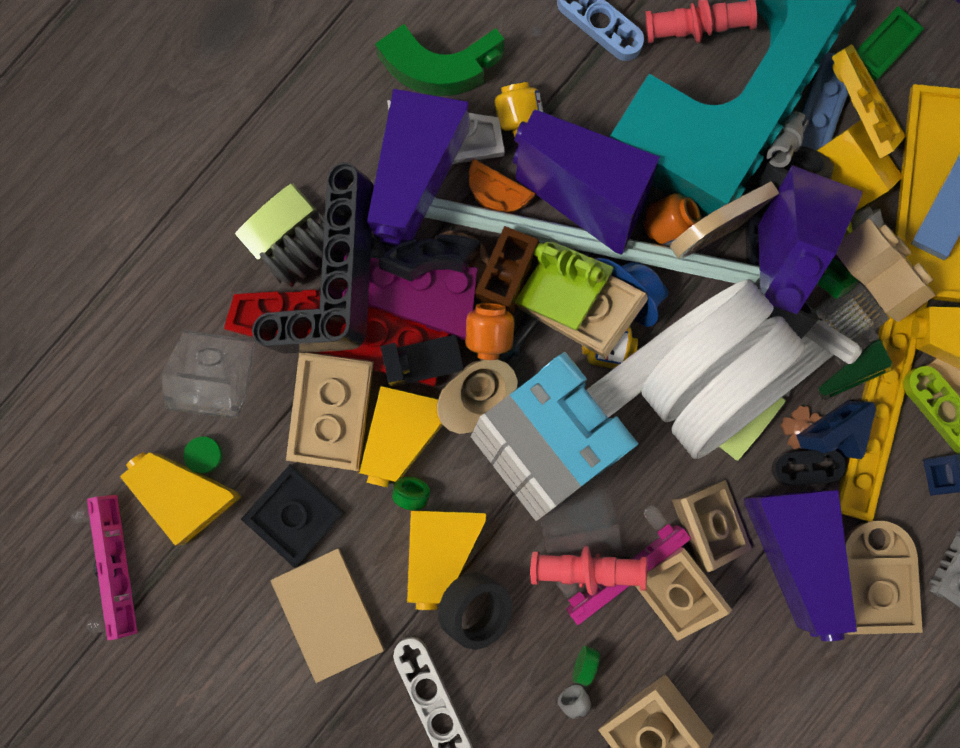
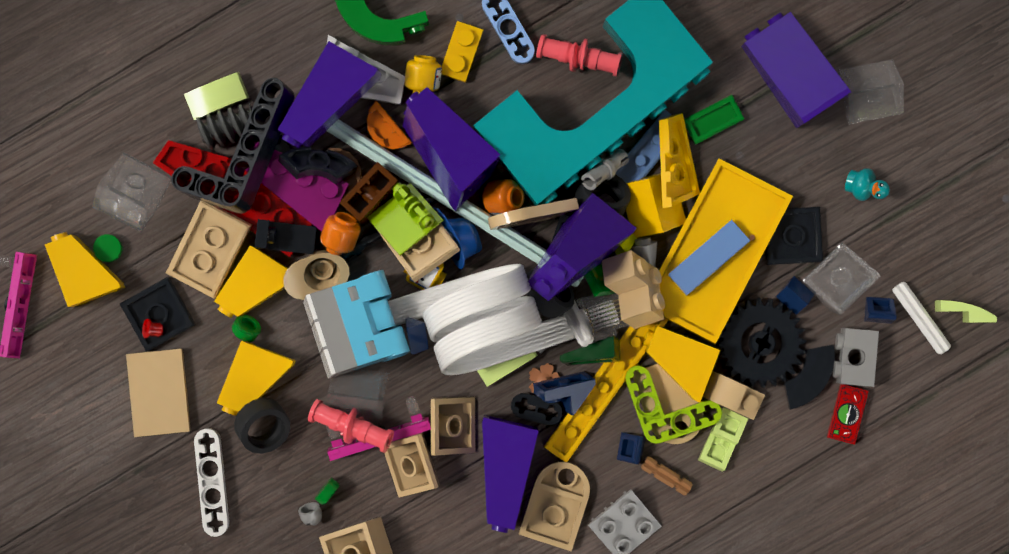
camera: 15 degrees right, 5 degrees up
(292, 536) = (151, 329): none -> red piece
(554, 67) = (461, 51): none -> yellow plate
(636, 421) = (416, 335): none -> dark blue slope

